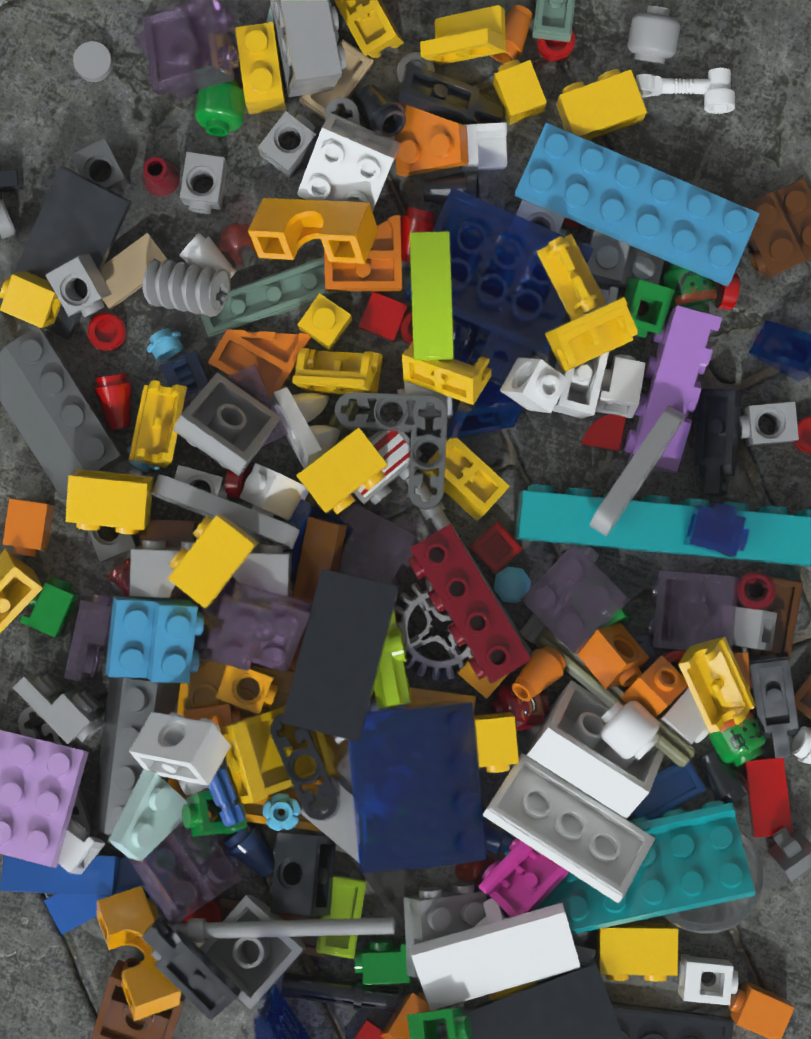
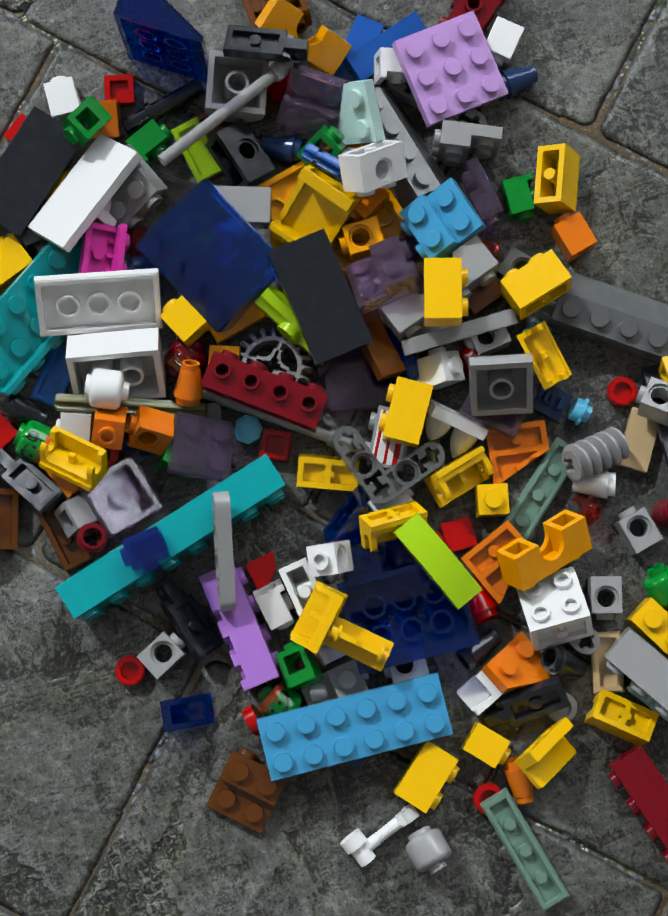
camera: 145 degrees right, 5 degrees down
(115, 400) = (583, 353): red cone -> none
(281, 801) = (285, 189): medium azure plate -> none
(308, 797) = (272, 199): black beam -> none

